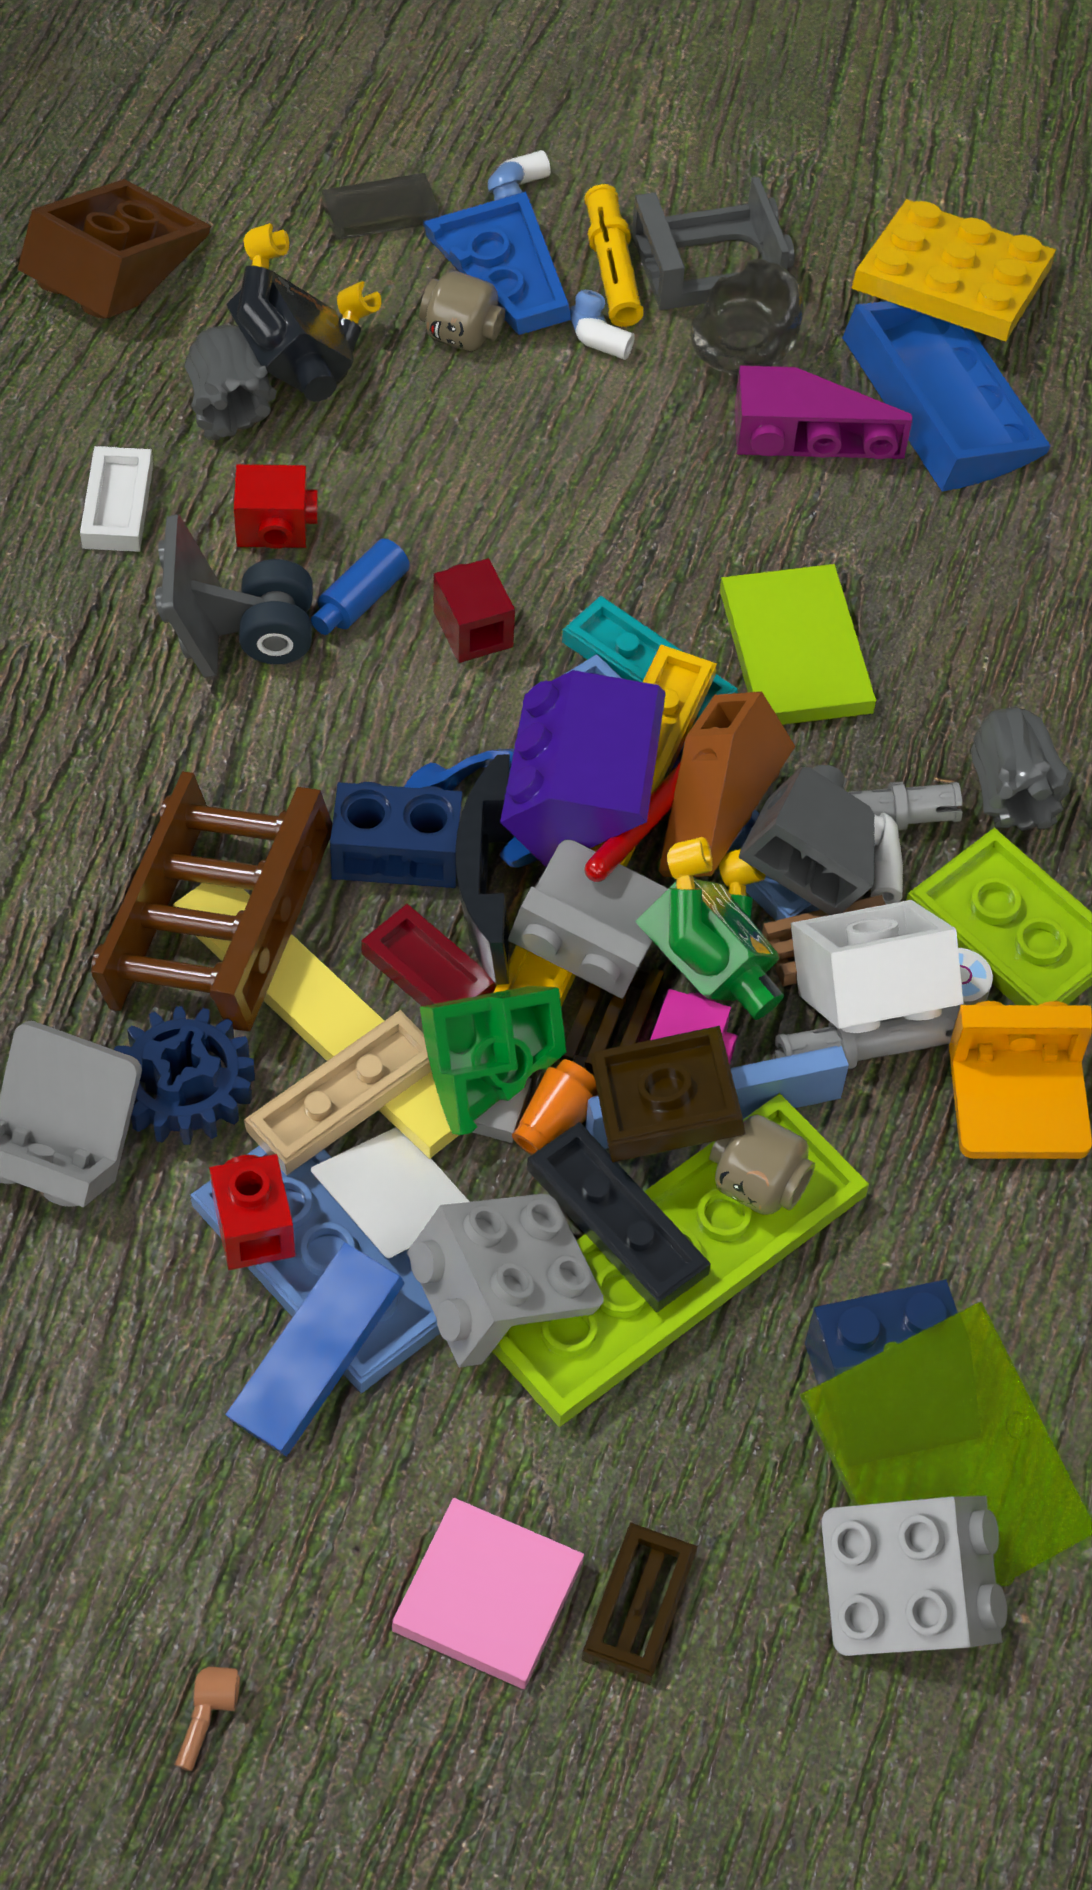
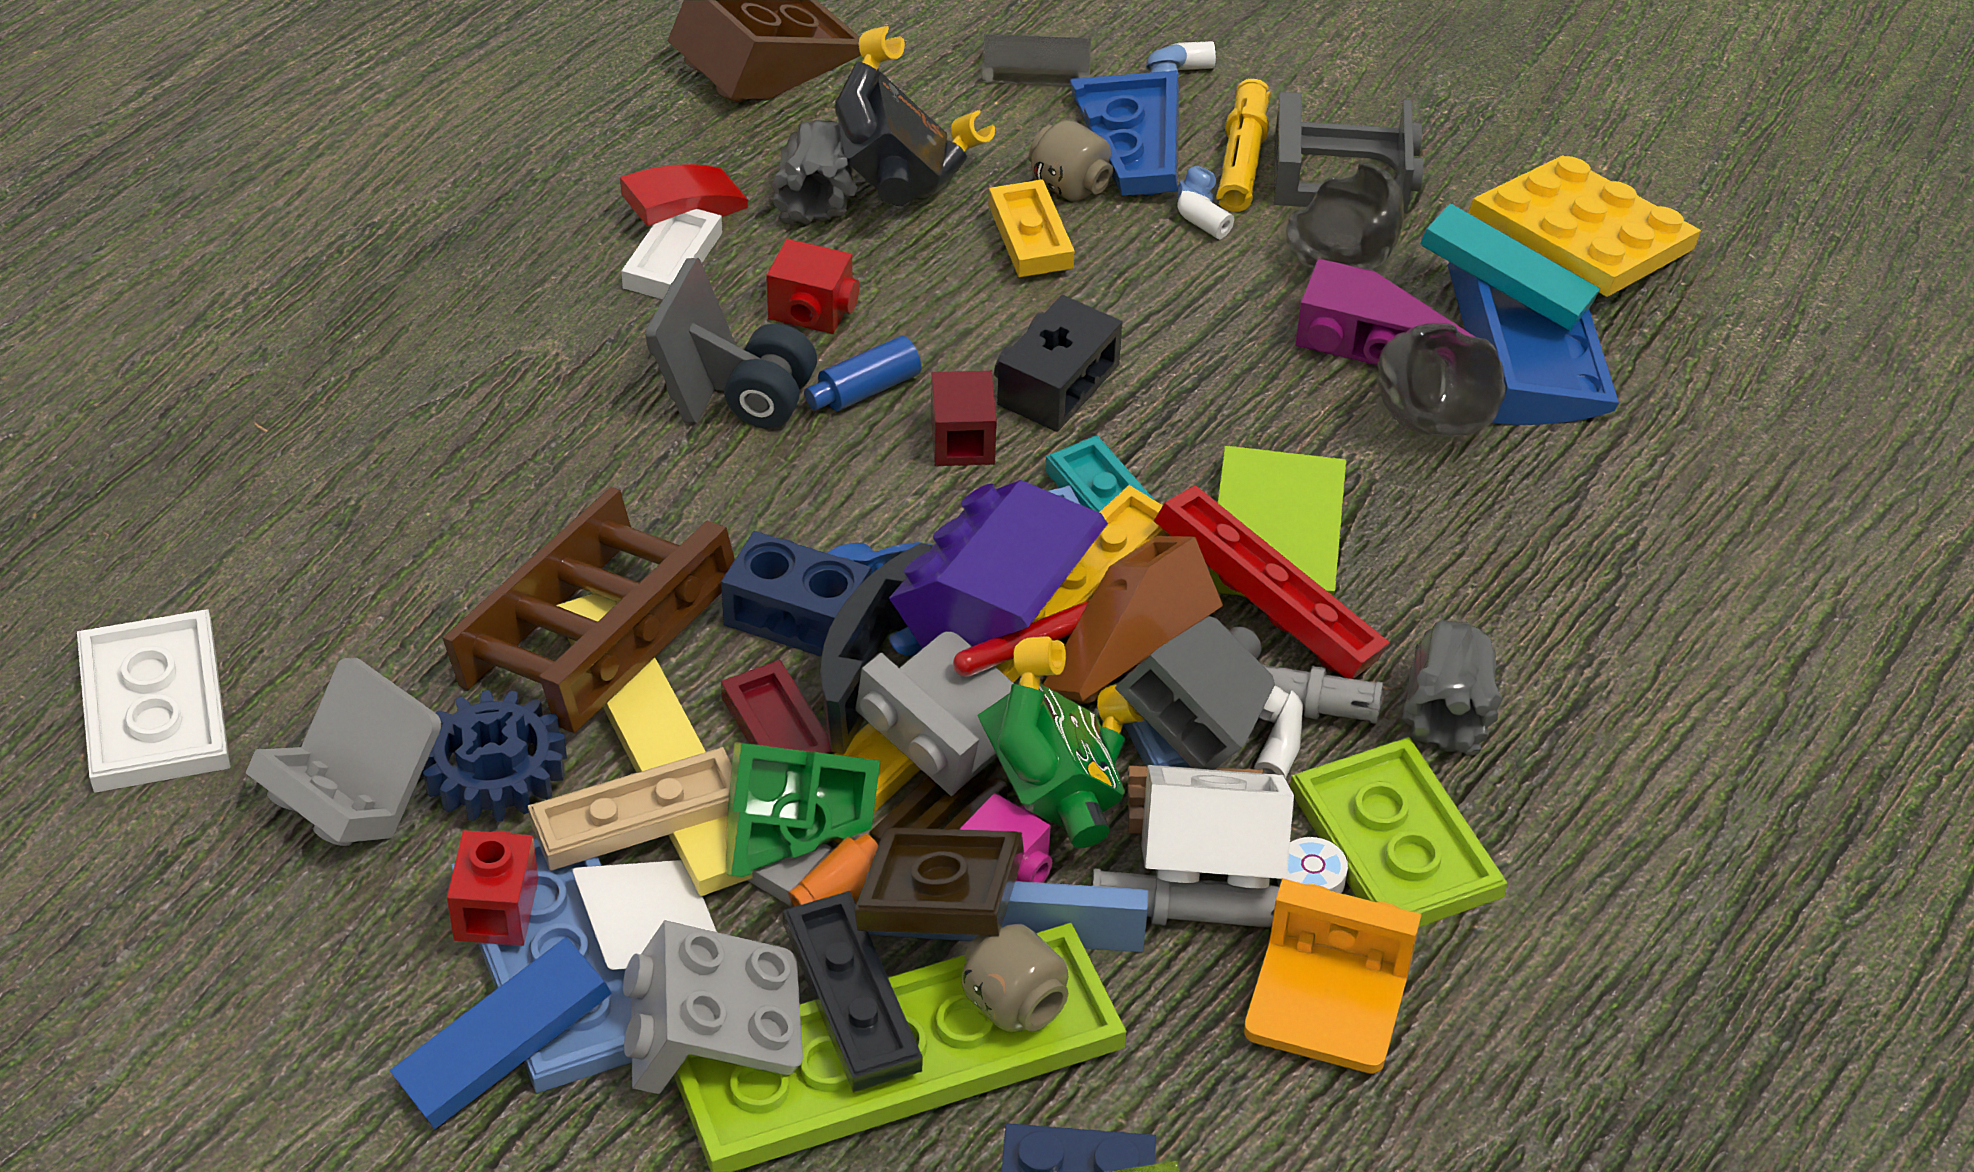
camera: 20 degrees right, 10 degrees down
(99, 432) = (677, 189): none -> red slope
(452, 392) = (1031, 228): none -> yellow plate
(537, 528) = (1058, 362): none -> black brick
(826, 710) = (1273, 583): none -> red plate
(896, 466) = (1441, 380): none -> clear smoke piece
(912, 332) = (1509, 266): none -> teal tile

